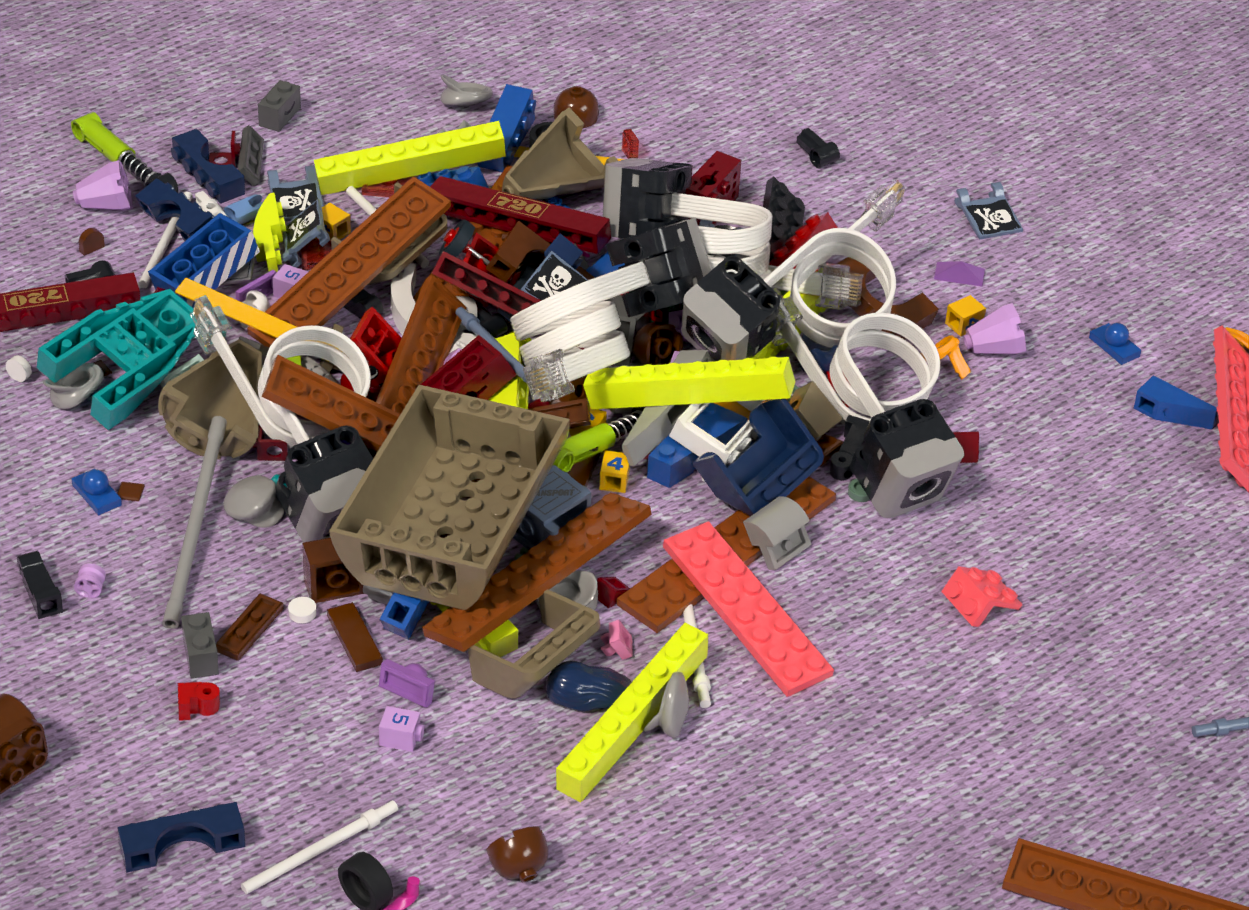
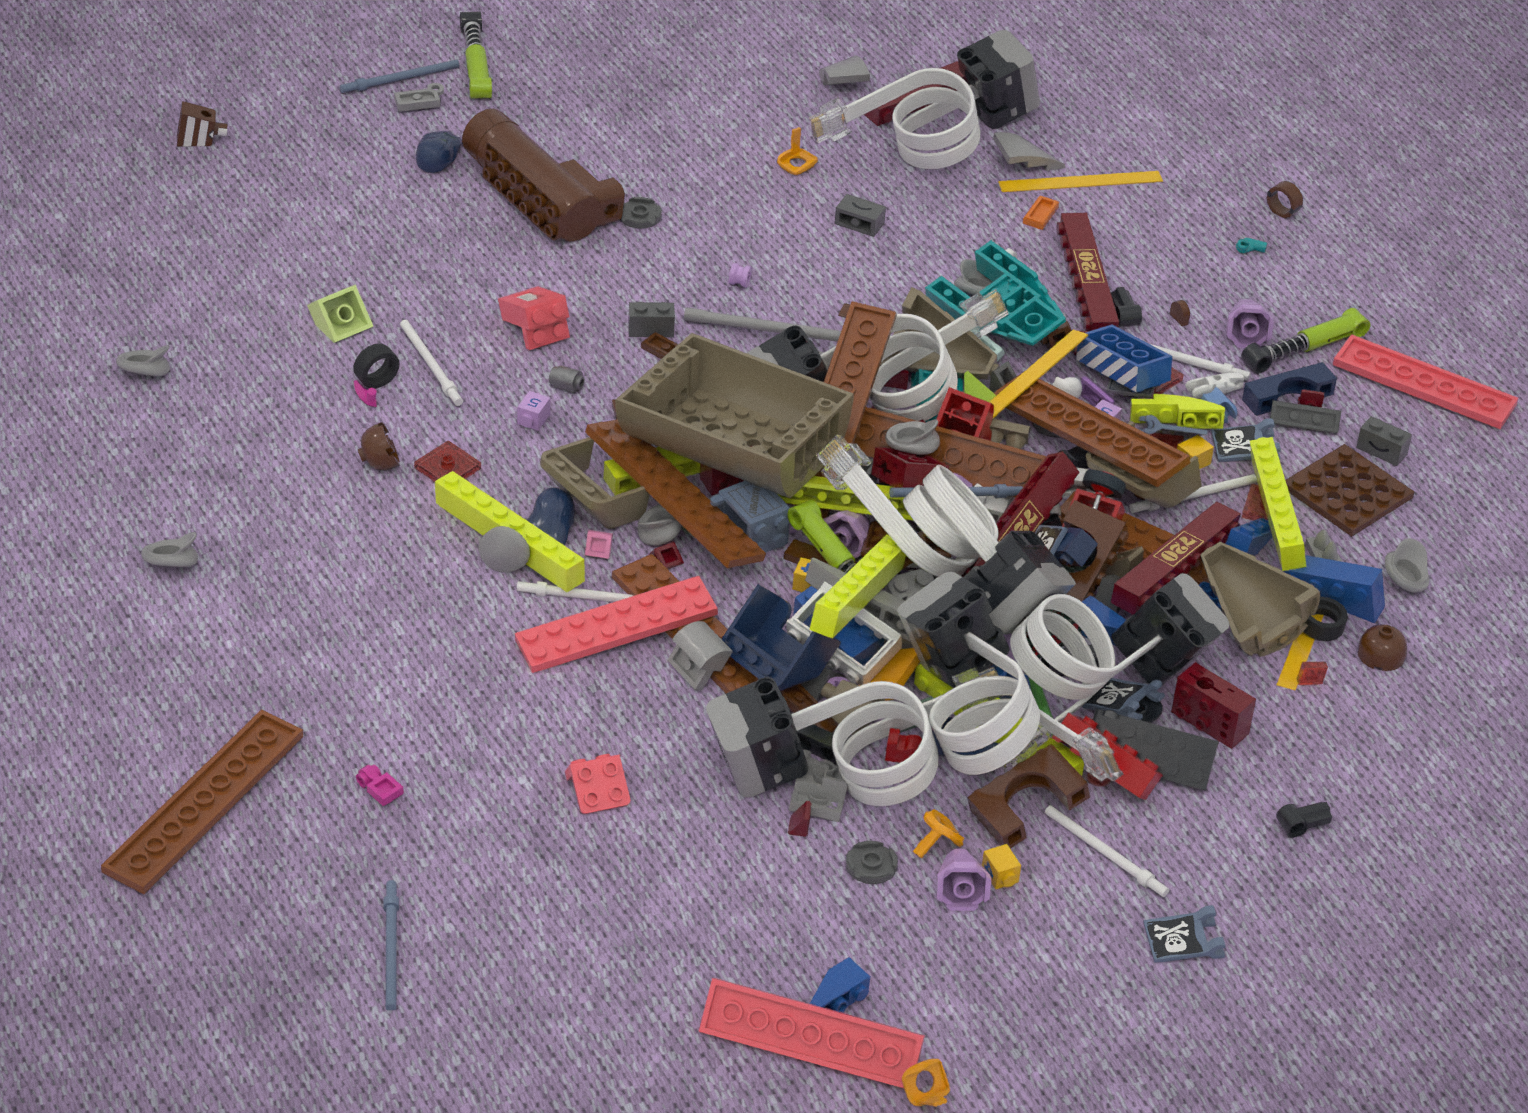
camera: 100 degrees right, 0 degrees up
(39, 584) = (744, 252): black leg -> none
(96, 491) = (850, 289): blue tile -> none
(162, 202) = (1224, 349): dark blue arch -> none
(170, 87) = (1425, 381): none -> coral plate
(197, 698) = (596, 315): red leg -> none
(214, 826) = (462, 309): dark blue arch -> none
(219, 754) = (539, 314): none -> coral brick
(328, 709) = (566, 378): none -> flat silver brick
(346, 127) = (1361, 513): none -> reddish brown piece
(408, 682) = (579, 421): medium lavender tile -> none
(422, 366) = (914, 437): none -> light grey piece
(514, 798) = (445, 460): none -> clear red plate
(929, 237) = (1143, 877): none -> white bar
(959, 273) = (1081, 889): medium lavender slope -> none
(991, 402) = (872, 869): none -> dark grey tile
(1063, 761) = (380, 787): none -> dark pink plate
(1115, 341) = (947, 981): blue tile -> none

